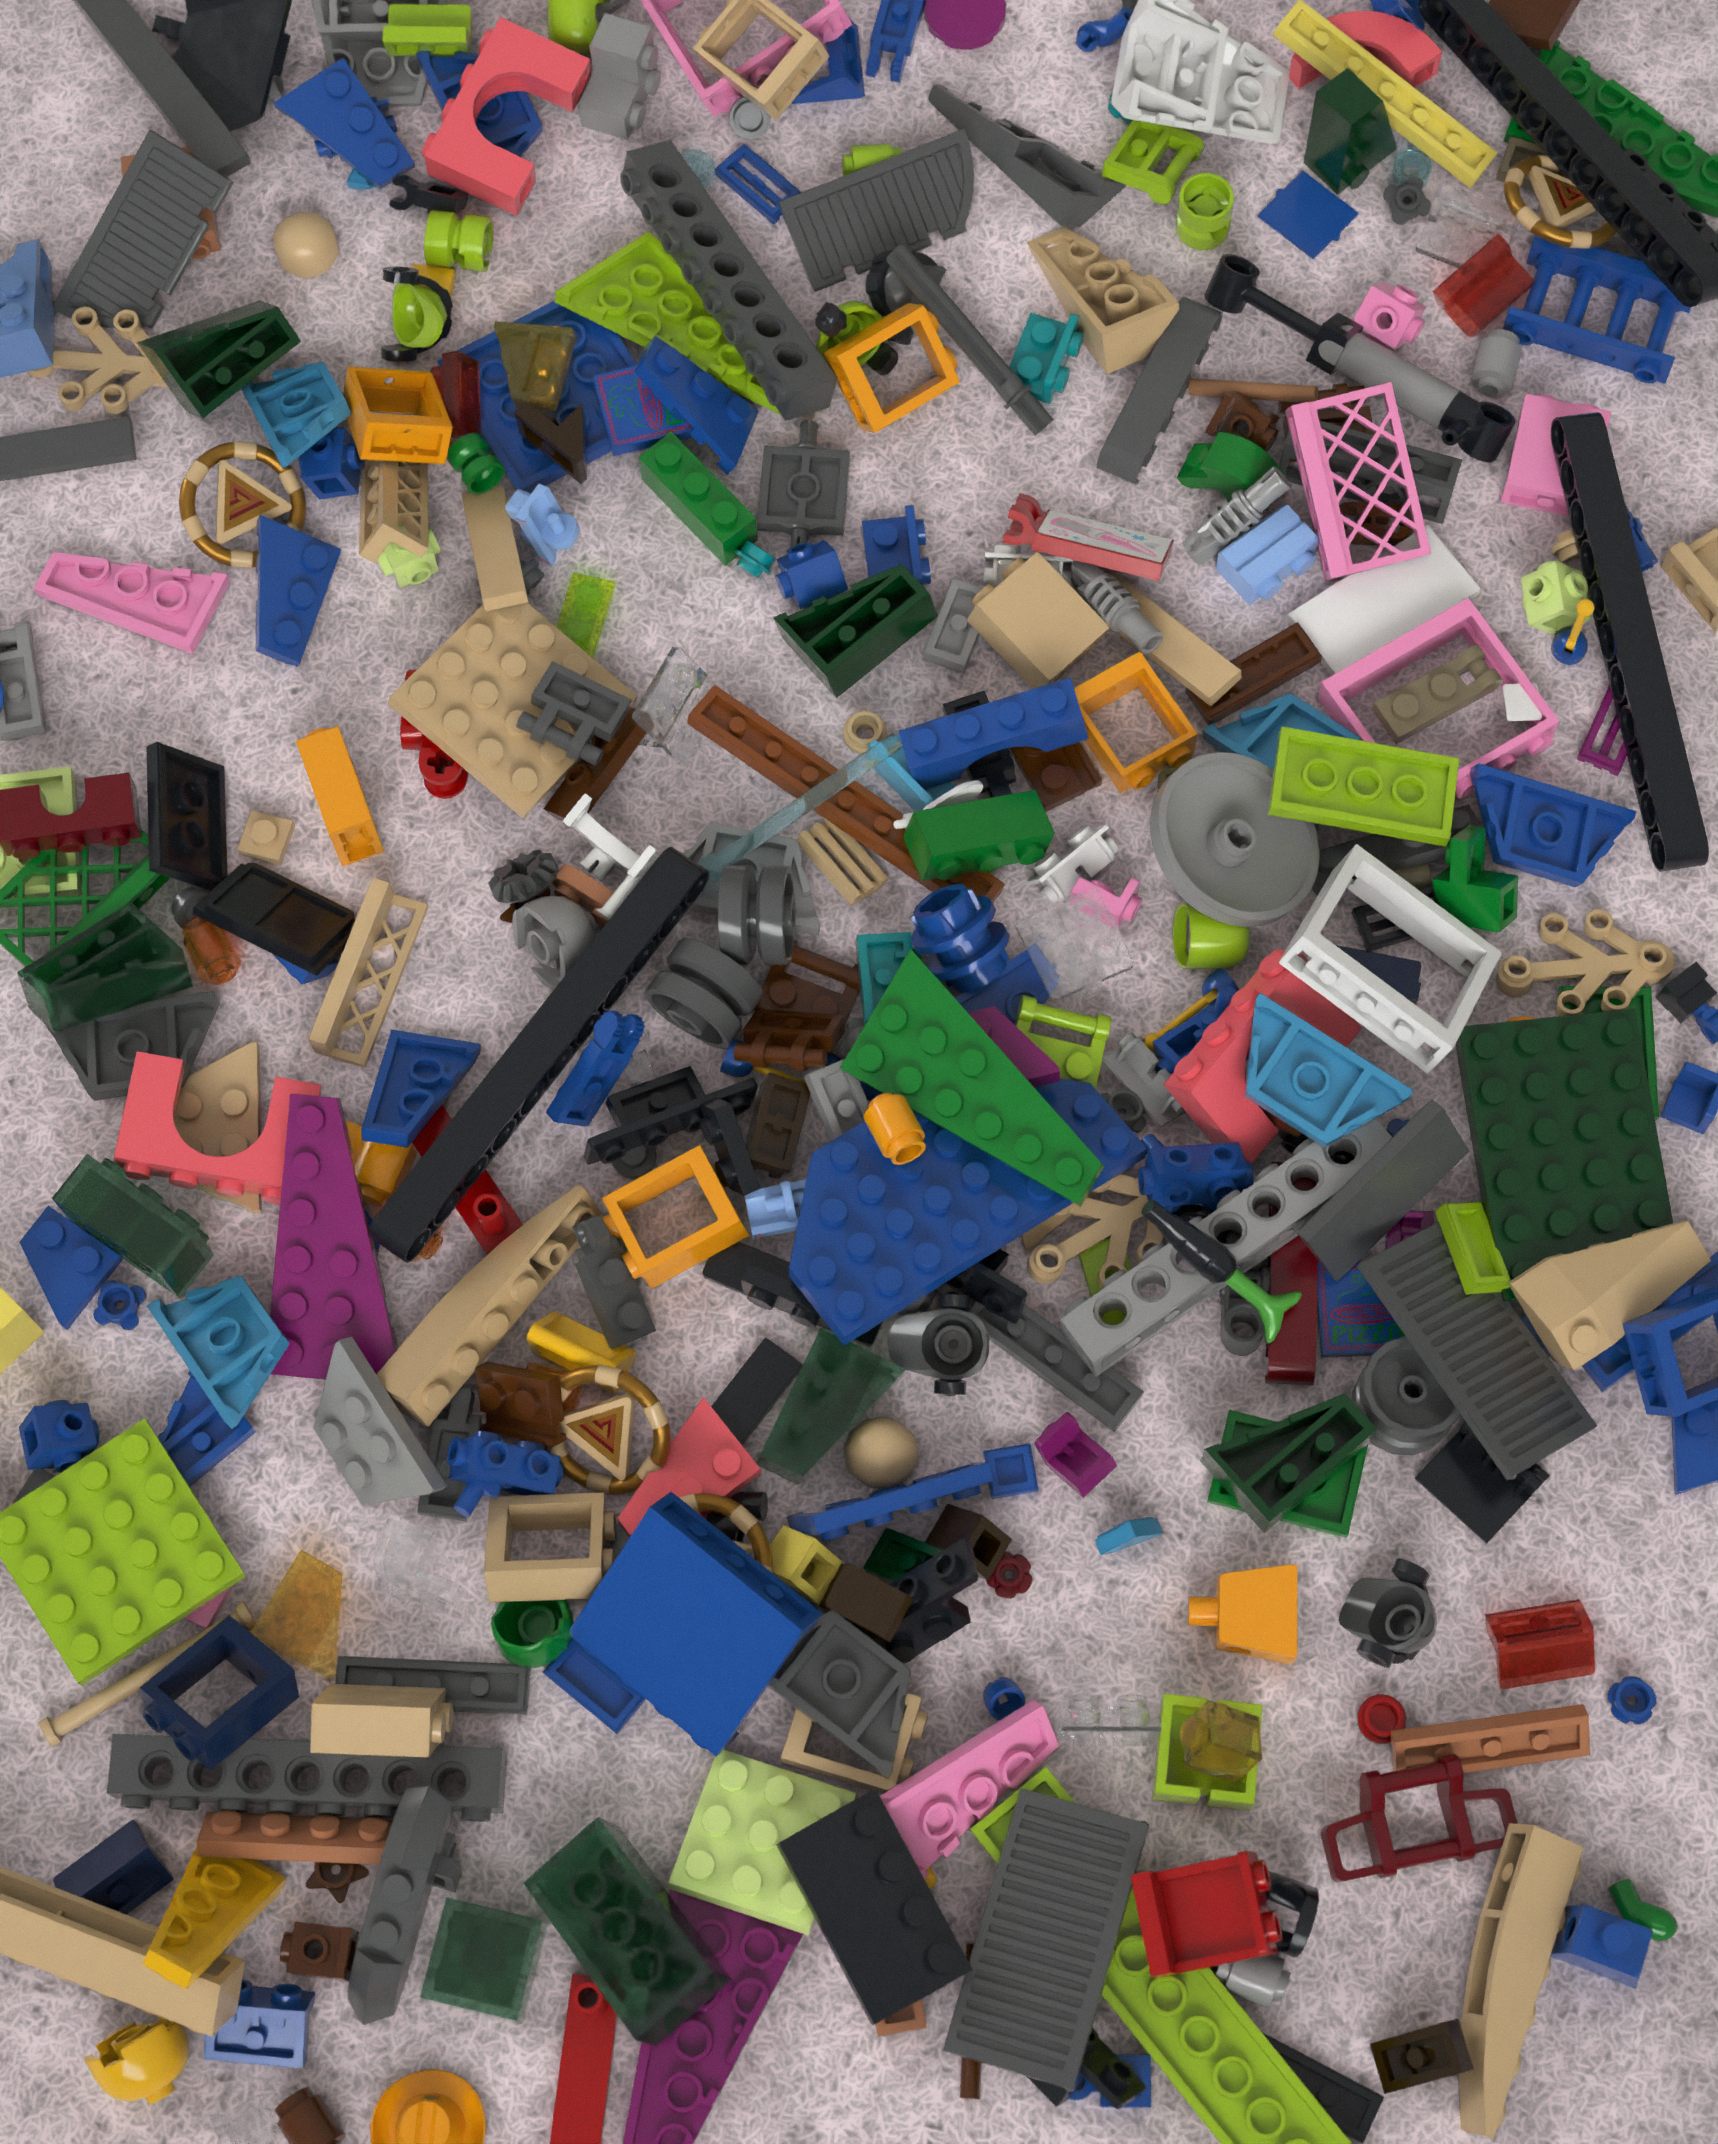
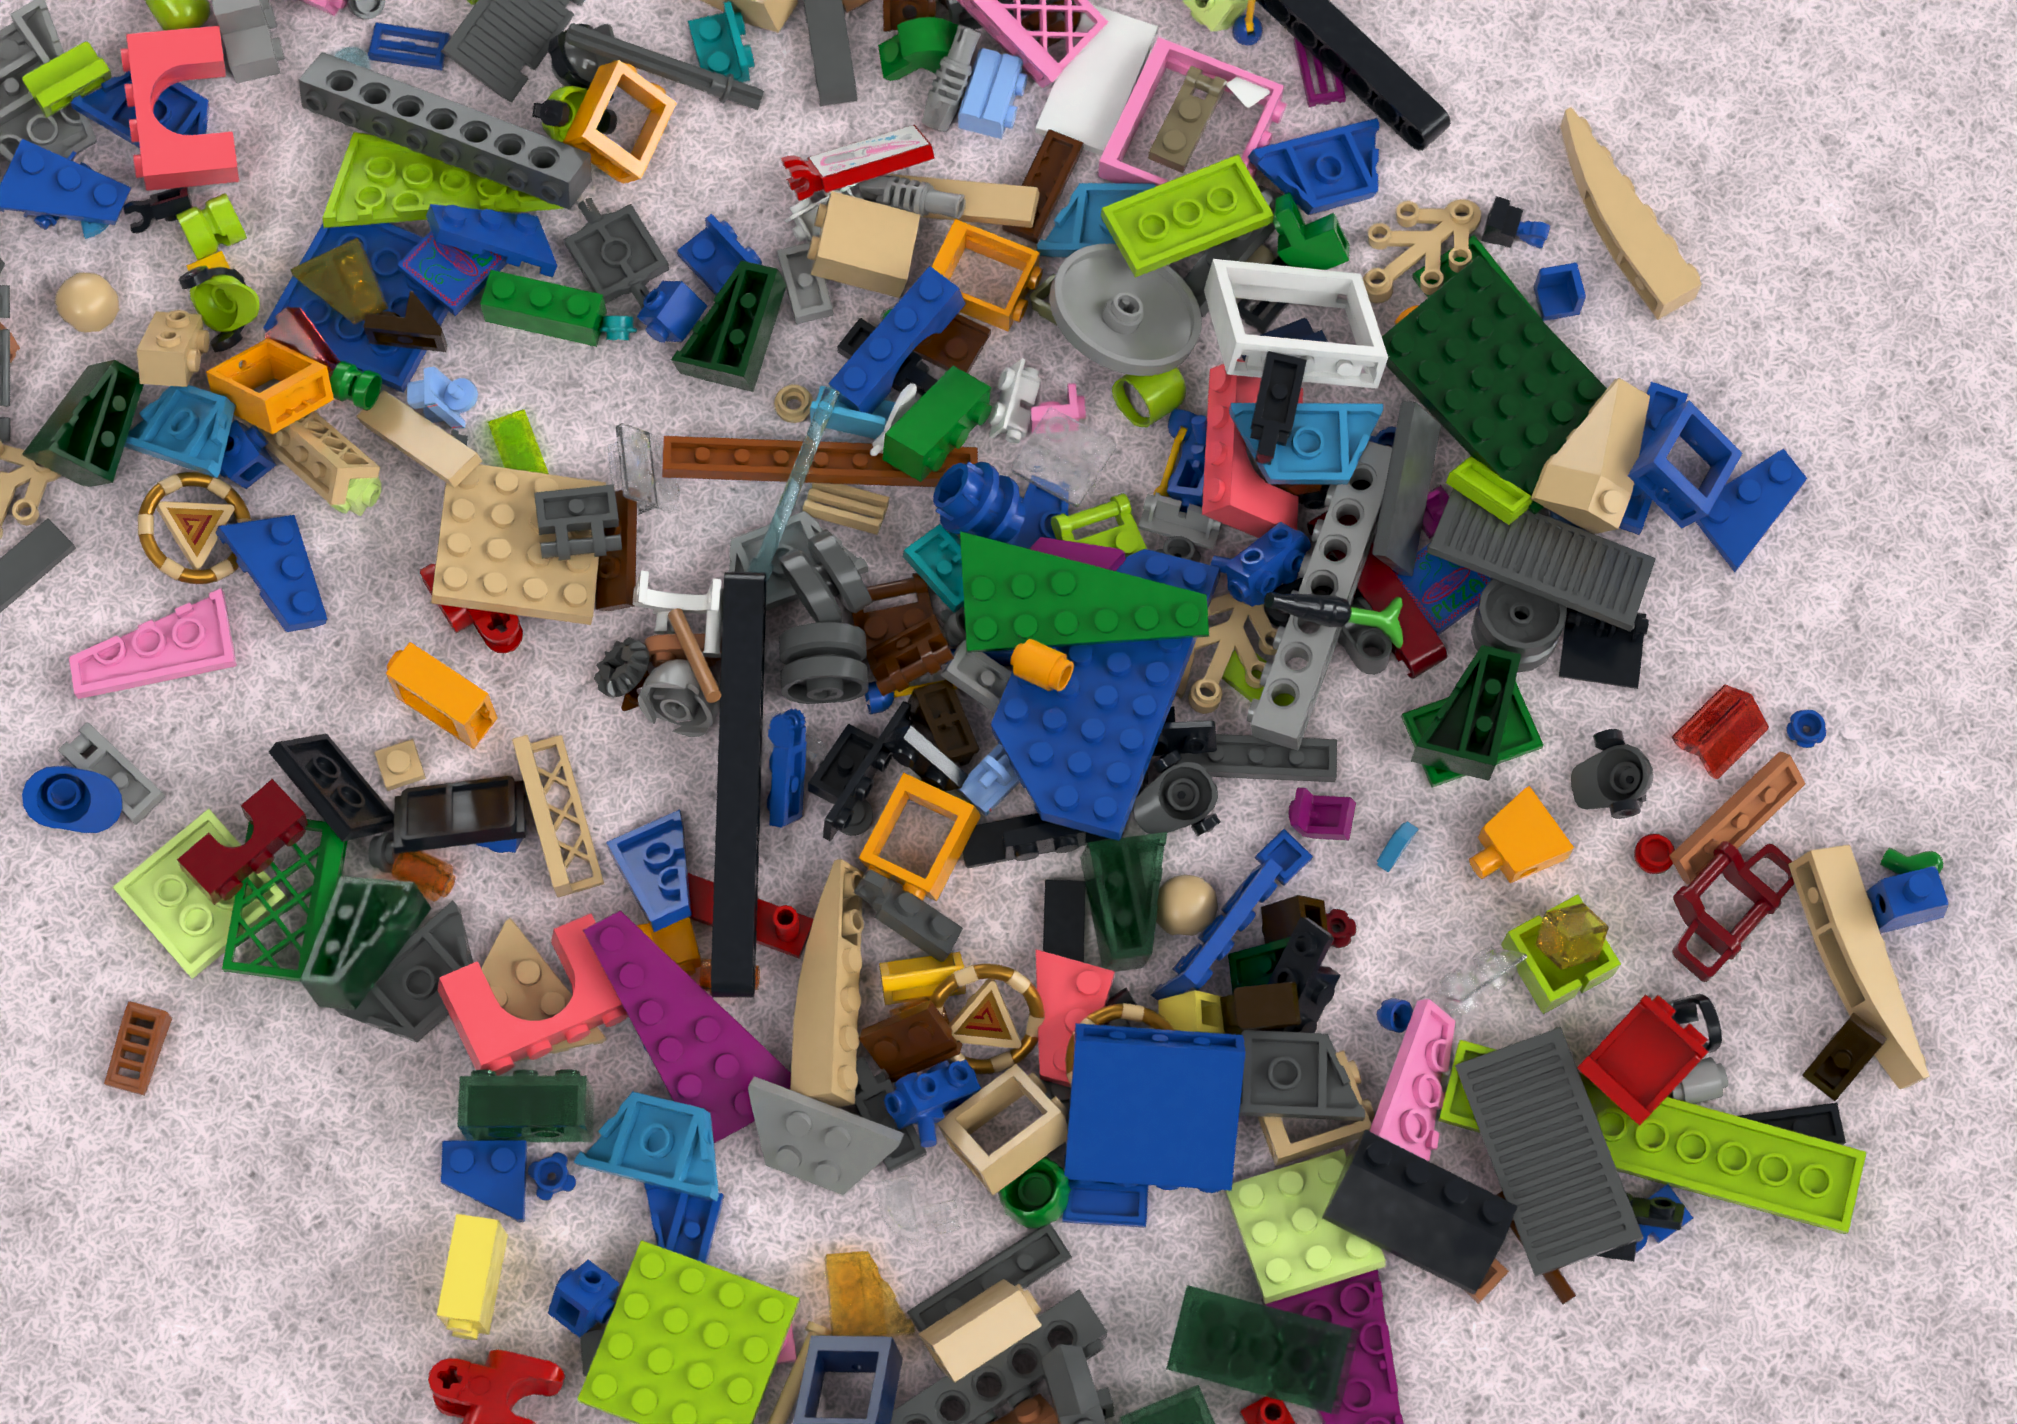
camera: 40 degrees left, 0 degrees up
(339, 329) = (172, 348): none -> tan brick
(586, 907) = (694, 655): none -> medium nougat bar
(1301, 1021) = (1276, 403): none -> black hinge

